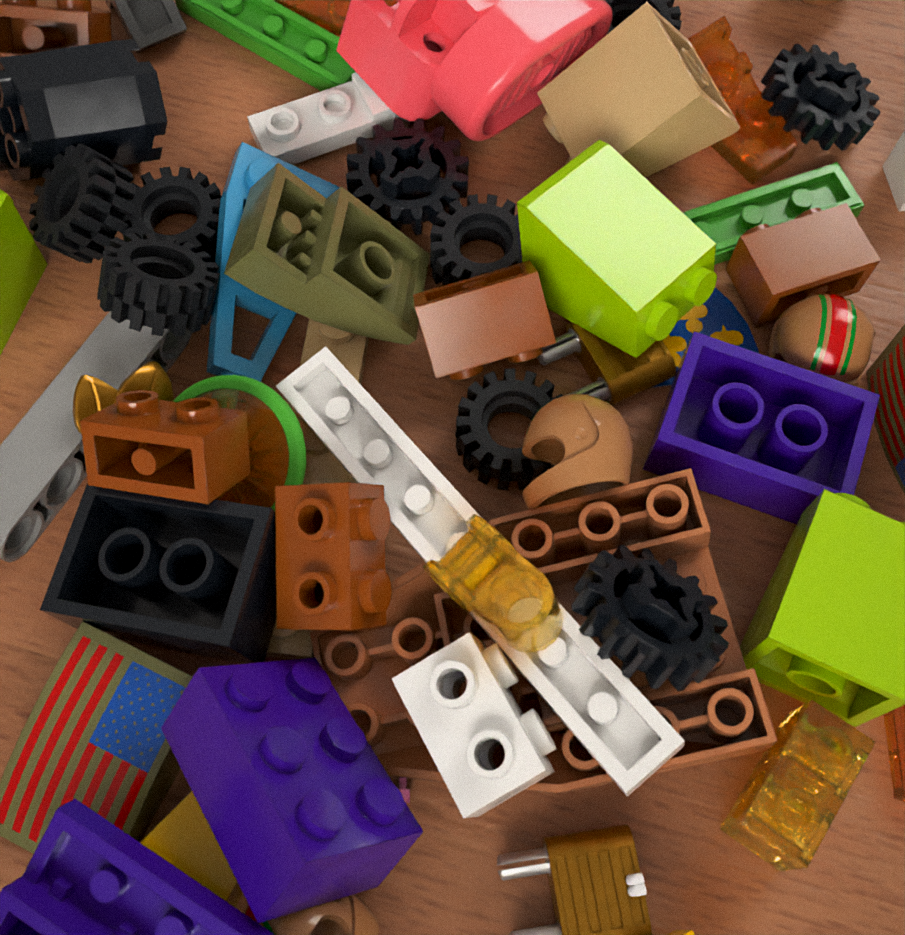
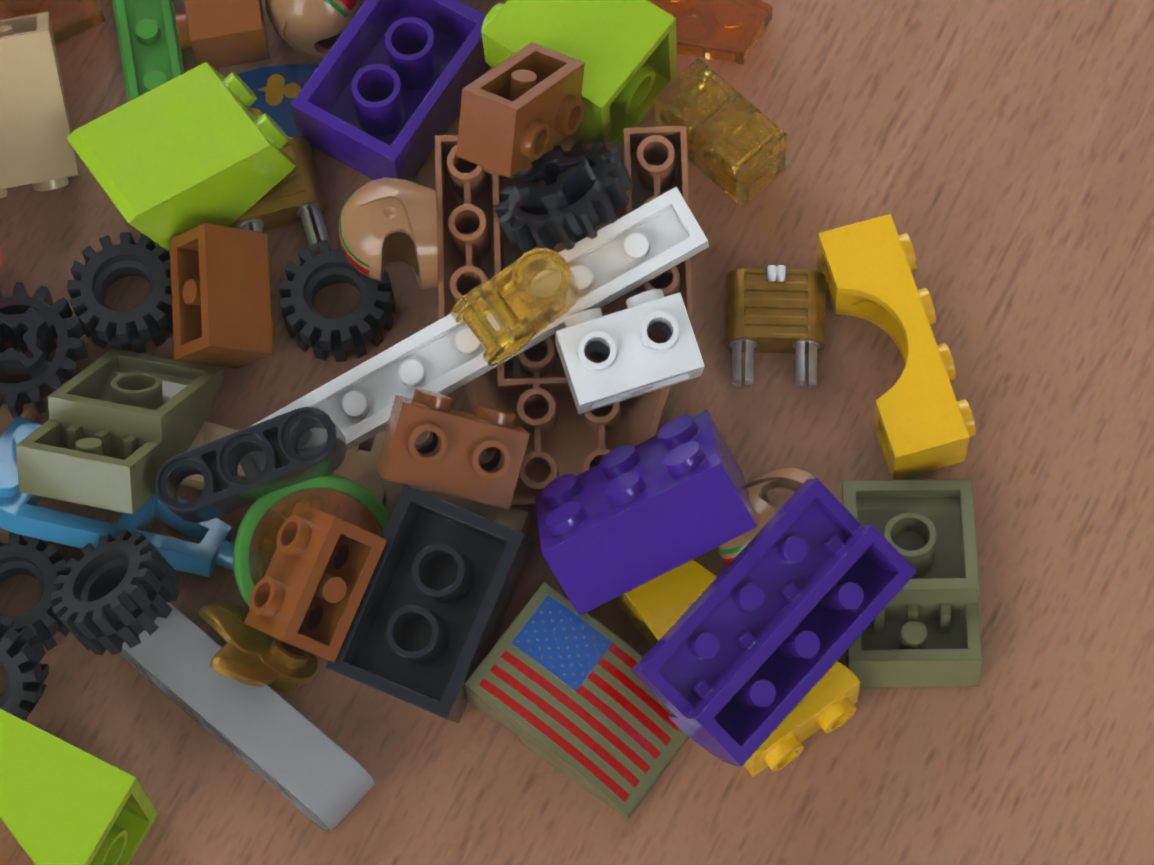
camera: 70 degrees left, 0 degrees up
(301, 387) = (221, 457): none -> black beam
(735, 542) = (520, 110): none -> dark orange brick

